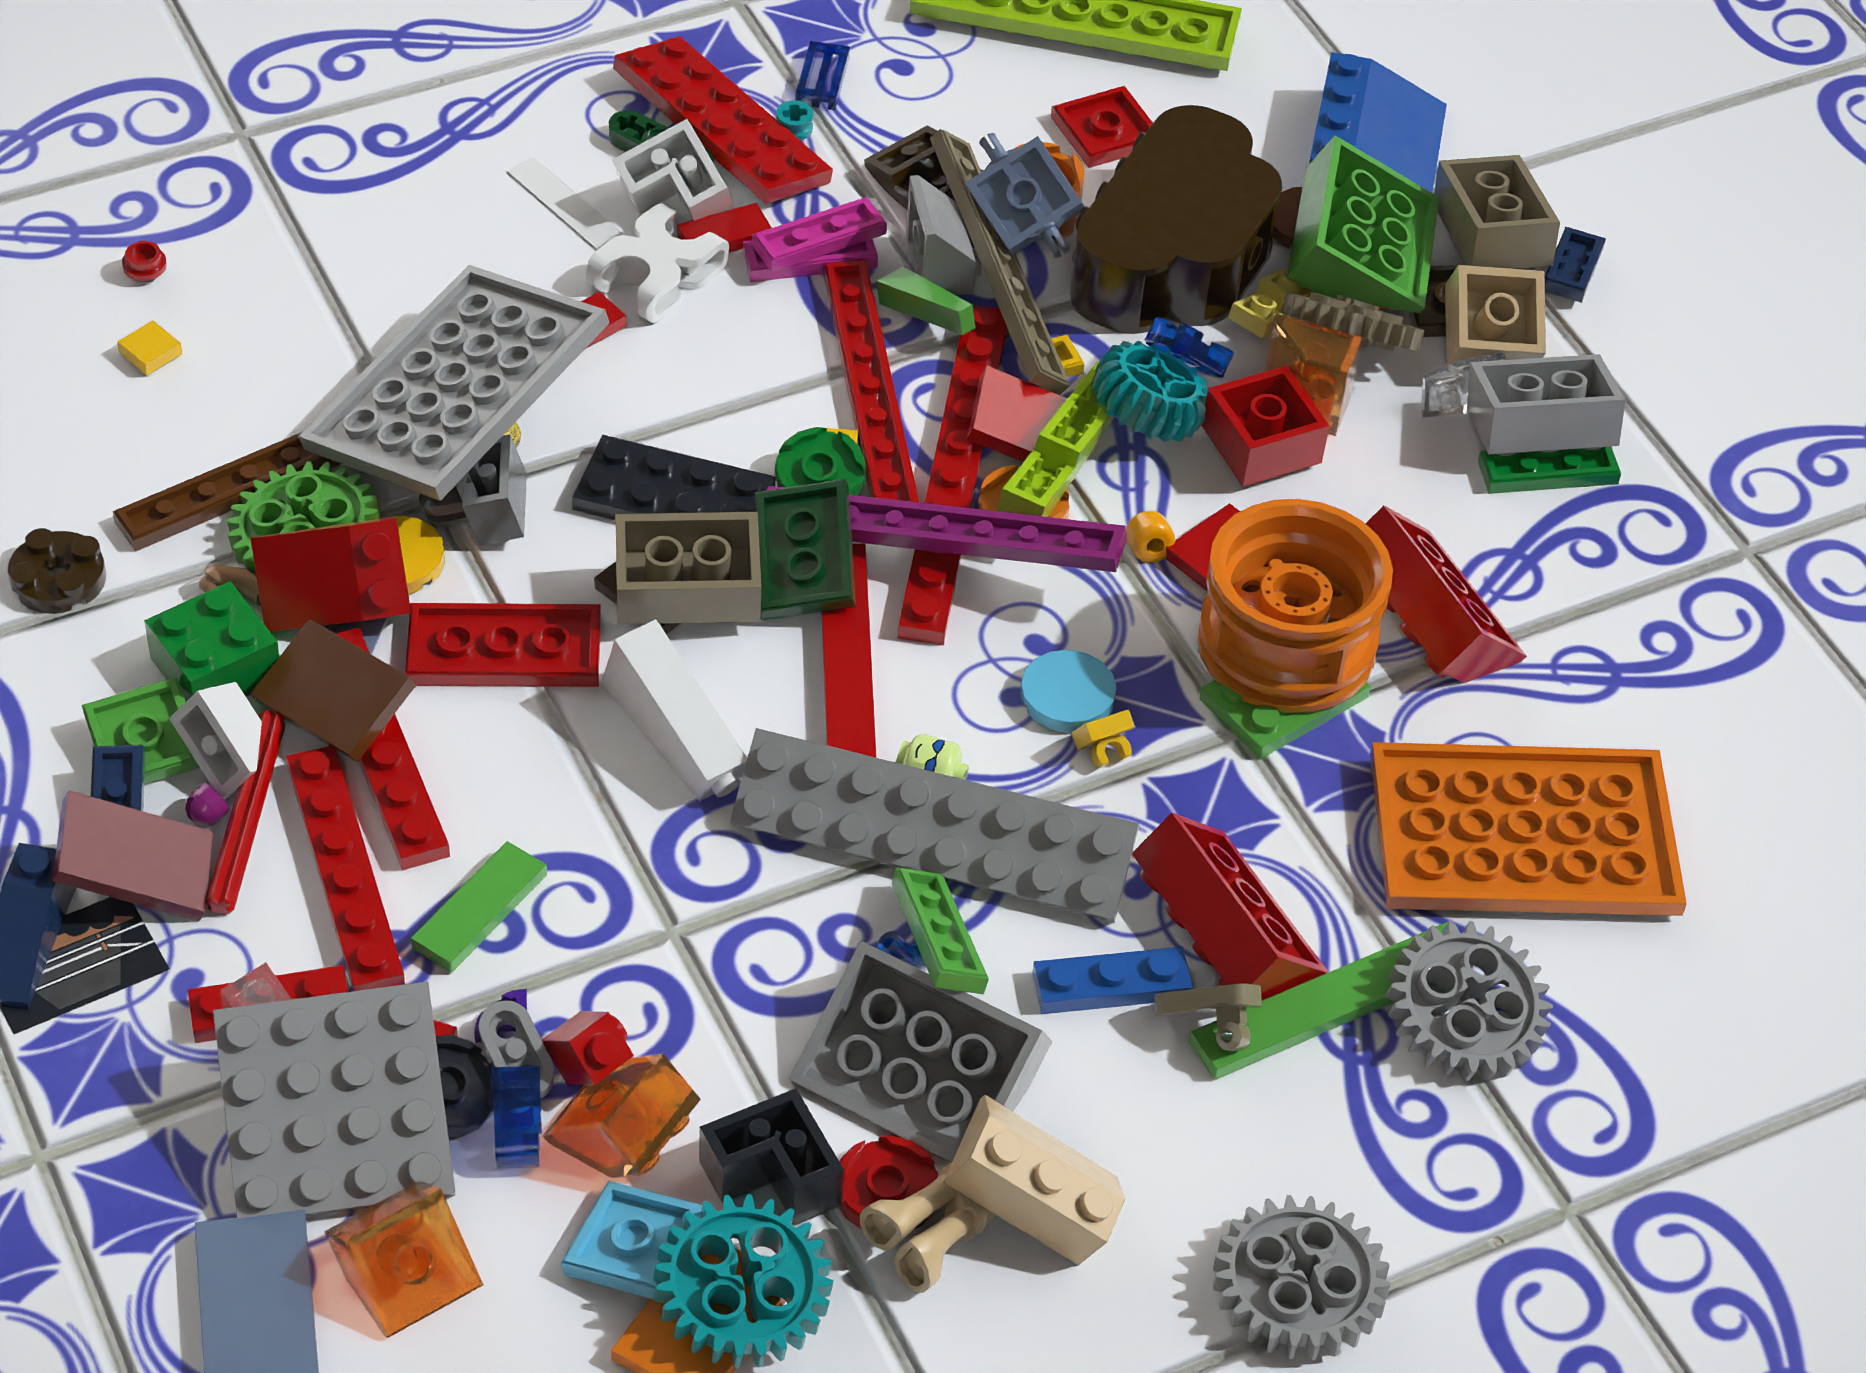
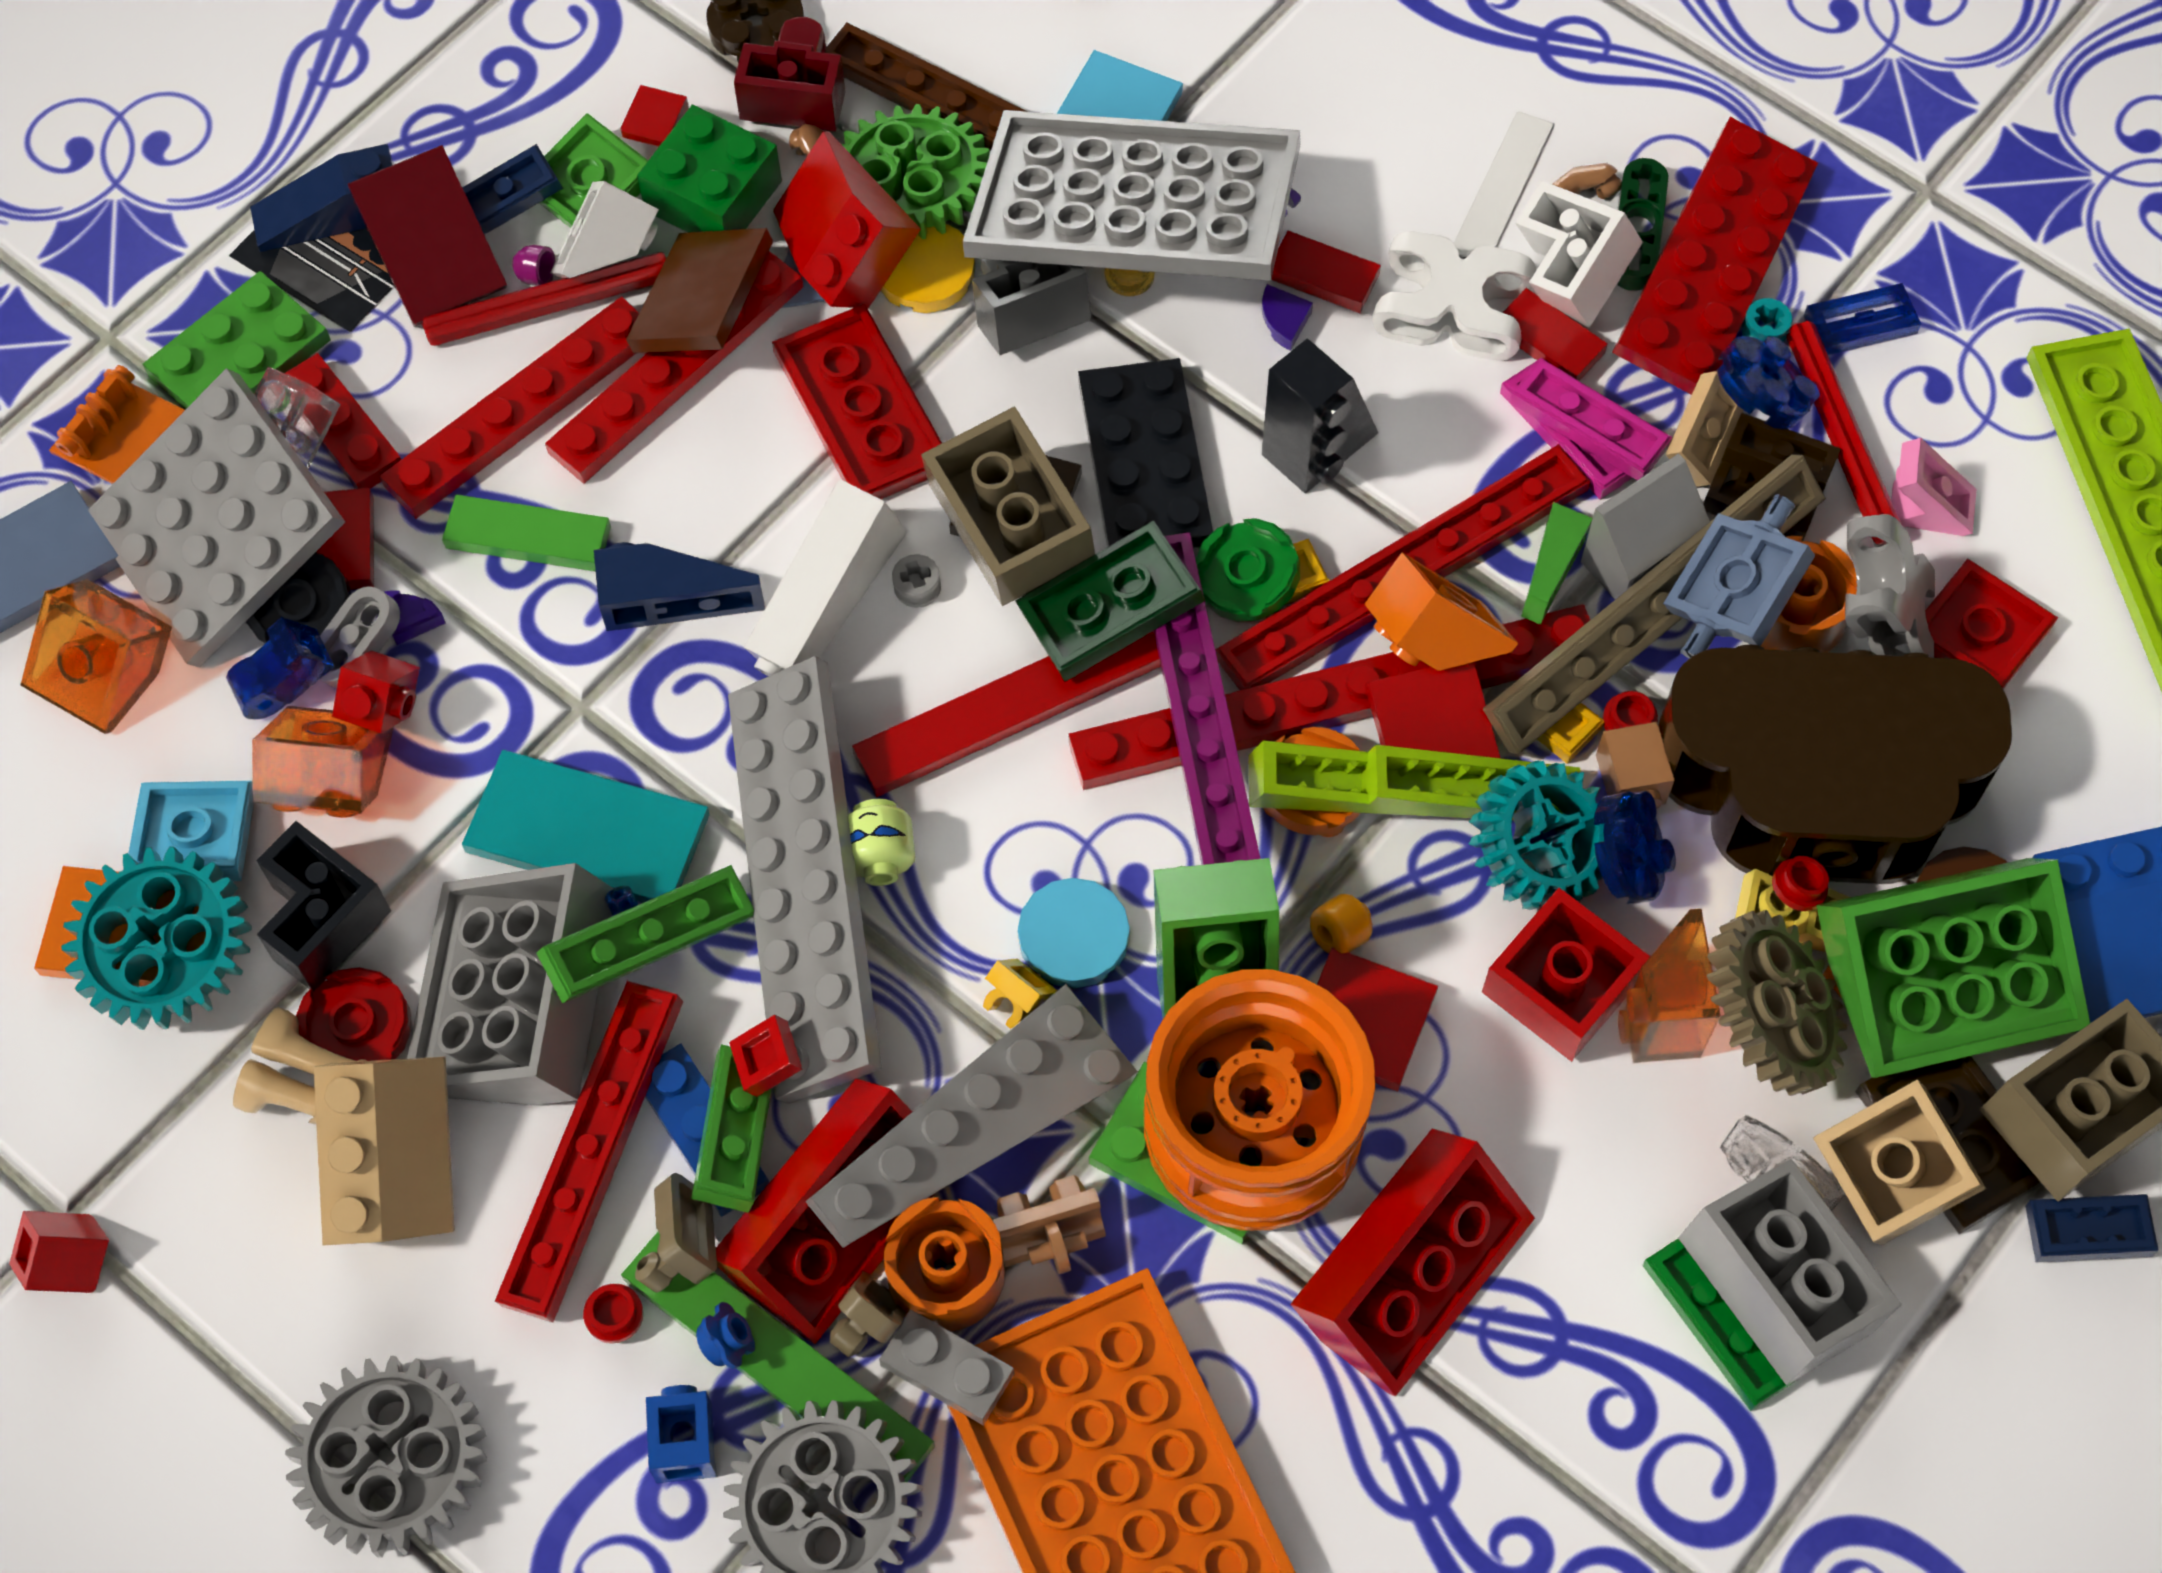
camera: 70 degrees right, 15 degrees up
(126, 661) = (653, 115): none -> red panel
(135, 1056) = (244, 333): none -> bright green plate
(157, 558) = (792, 79): none -> dark red brick
(162, 1170) = (114, 426): none -> orange hinge
(318, 376) = (1121, 91): none -> medium azure tile
(599, 159) = (1599, 176): none -> medium nougat arm
(601, 823) = (662, 586): none -> dark blue slope
(602, 363) = (1284, 315): none -> dark purple tile
(702, 657) = (927, 571): none -> light grey bush
(733, 361) = (1313, 417): none -> black wedge
(791, 963) = (557, 816): none -> teal tile
(852, 133) = (1766, 379): none -> clear blue plate
(854, 175) = (1705, 429): none -> tan plate
(905, 120) = (1840, 423): none -> red axle
(941, 372) = (1434, 618): none -> orange slope
(991, 102) = (1931, 492): none -> bright pink slope
(1072, 318) = (1629, 710): none -> red plate
(1076, 133) = (1889, 587): none -> light grey piece
(1089, 893) = (765, 1055): none -> red plate
(1103, 1054) = (589, 1152): none -> red tile
(1115, 322) = (1635, 762): none -> medium nougat brick
(1134, 943) = (730, 1139): none -> bright green tile
(1155, 580) = (1213, 923): none -> bright green brick
(1204, 776) = (1006, 1095): none -> light grey wing
(1245, 1088) = (613, 1313): none -> red plate
(1263, 279) = (1801, 883): none -> red plate
(1313, 1005) = (725, 1337): none -> blue plate
(1314, 788) = (1049, 1228): none -> medium nougat hips
(1315, 854) = (951, 1233): none -> orange brick
(1326, 908) = (868, 1311): none -> dark tan piece
(1373, 1071) = (665, 1414): none -> blue brick
(1399, 881) = (947, 1367): none -> light grey plate

